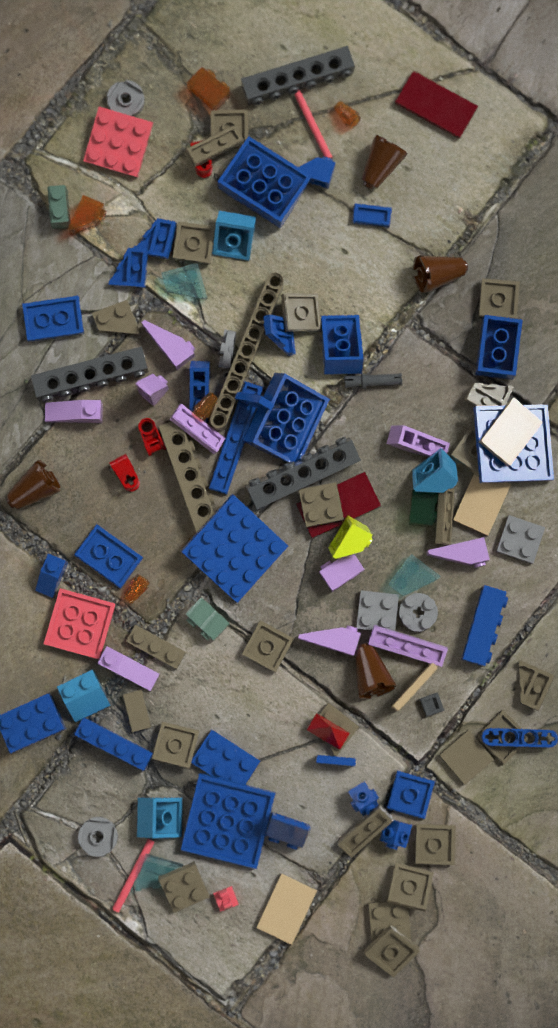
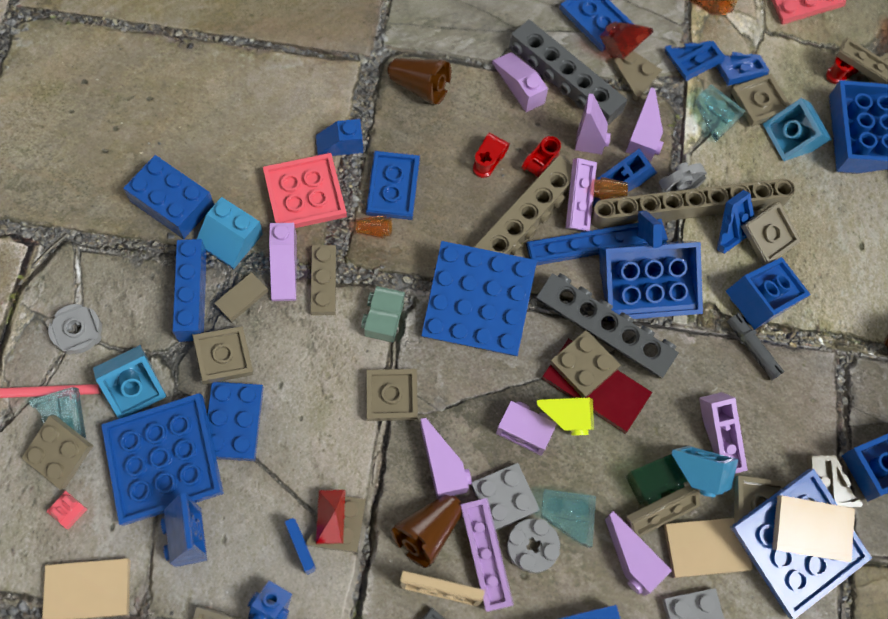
camera: 55 degrees right, 15 degrees down
(87, 311) = (623, 38): none -> clear red slope

